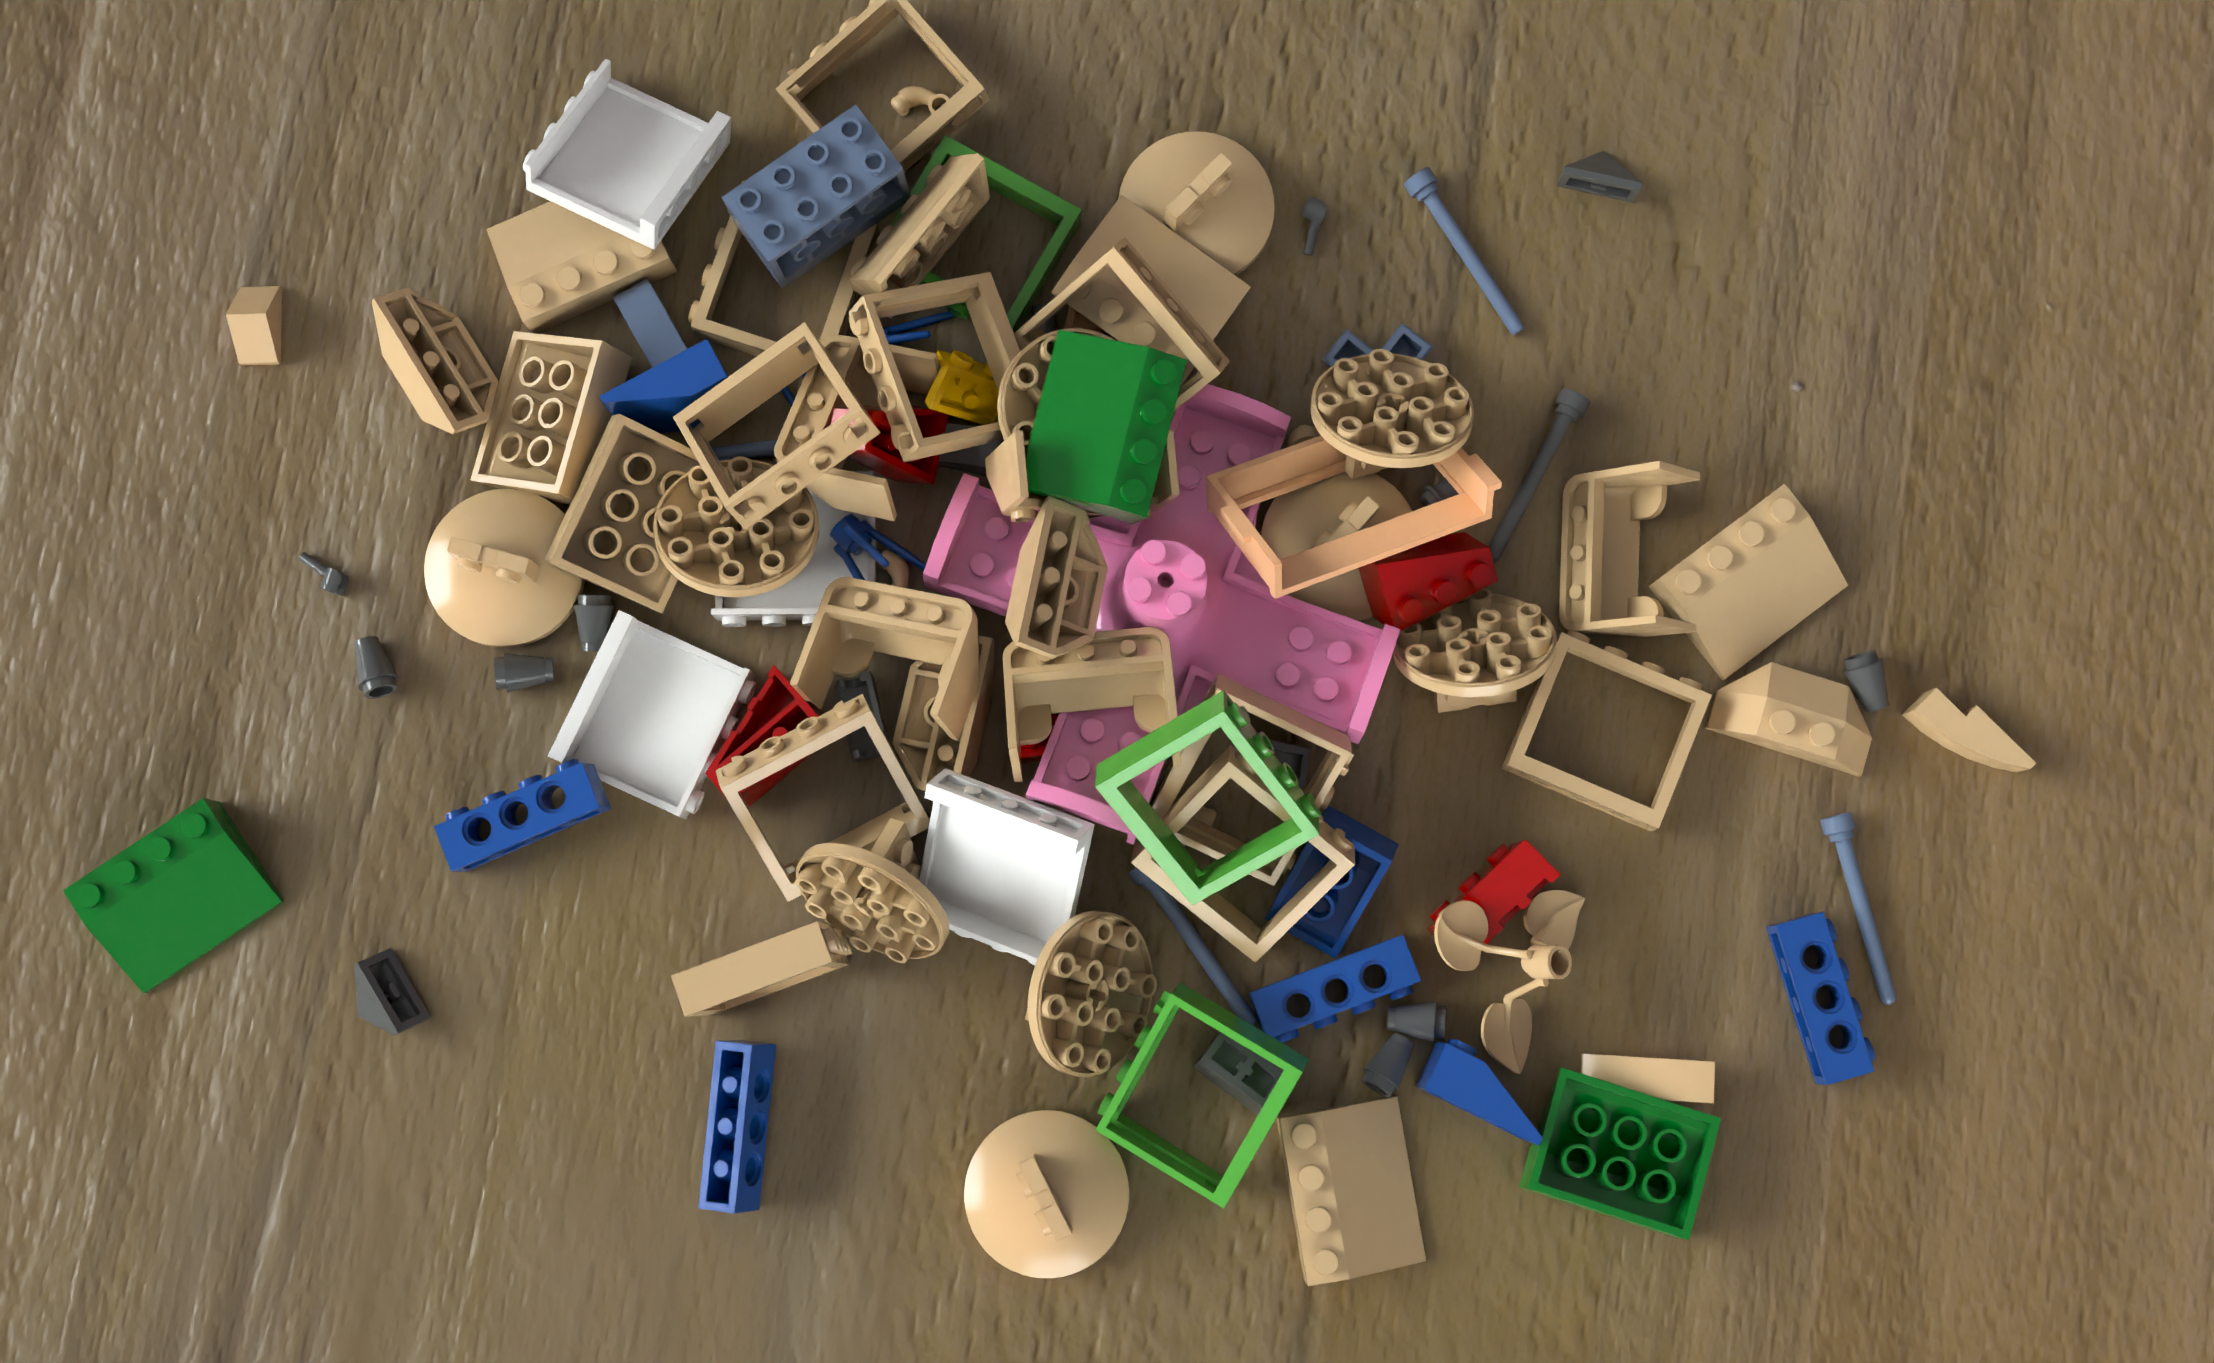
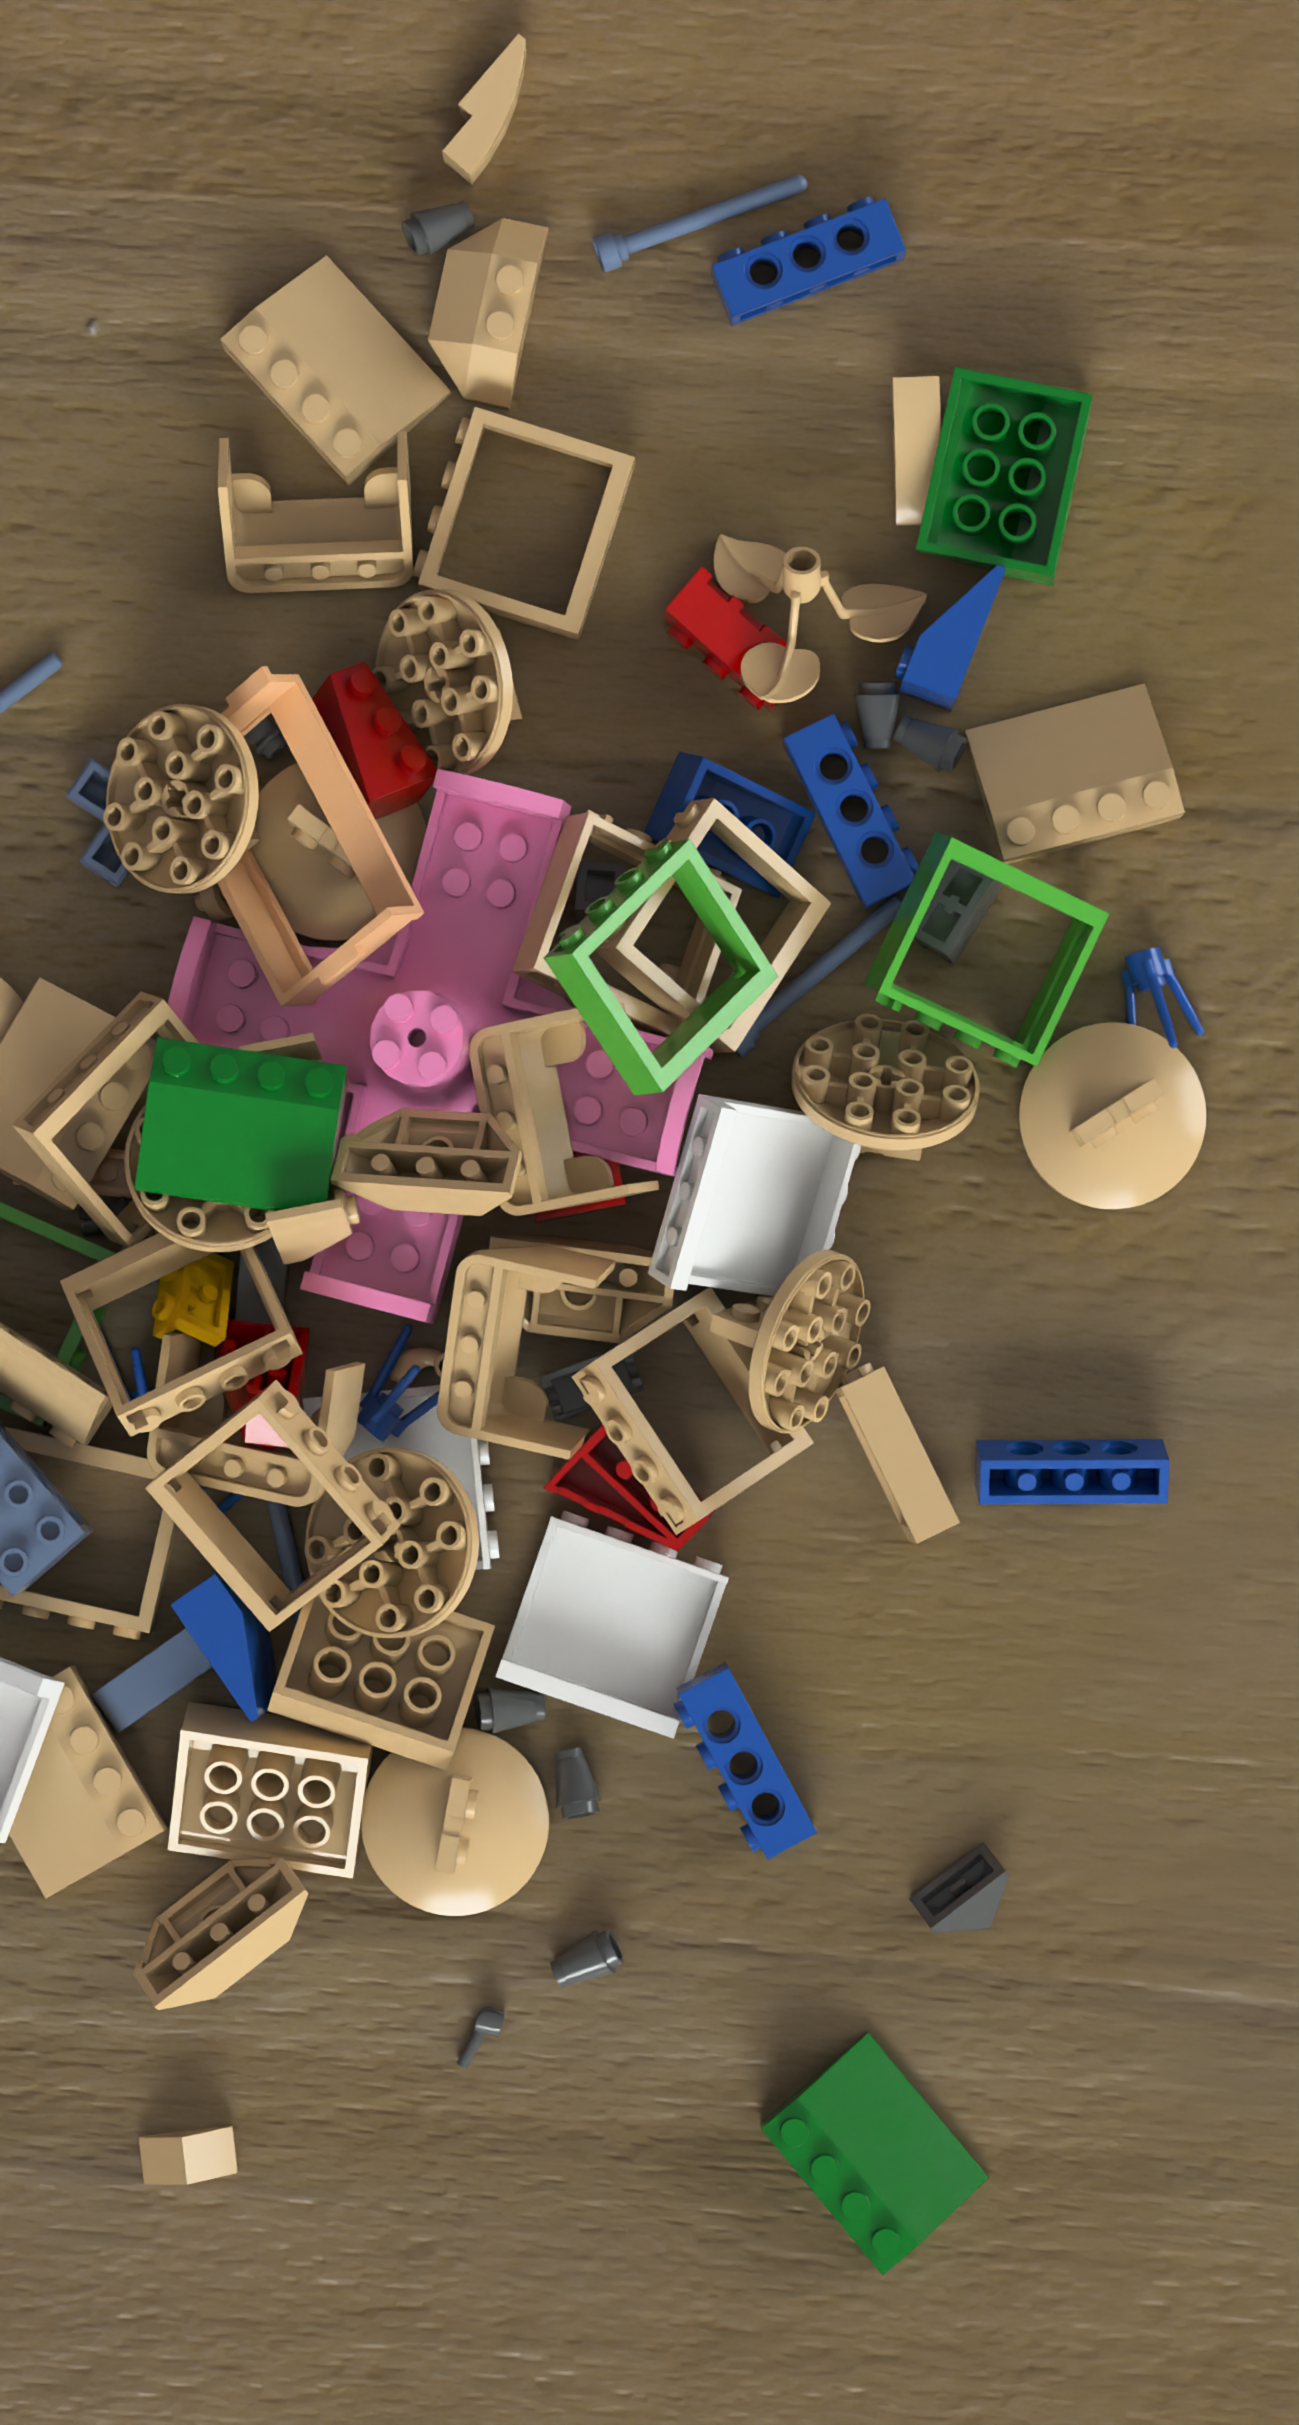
camera: 95 degrees left, 5 degrees up
(1170, 1238) = (1148, 971): none -> blue plant
(1569, 408) = (149, 593): dark grey piece -> none

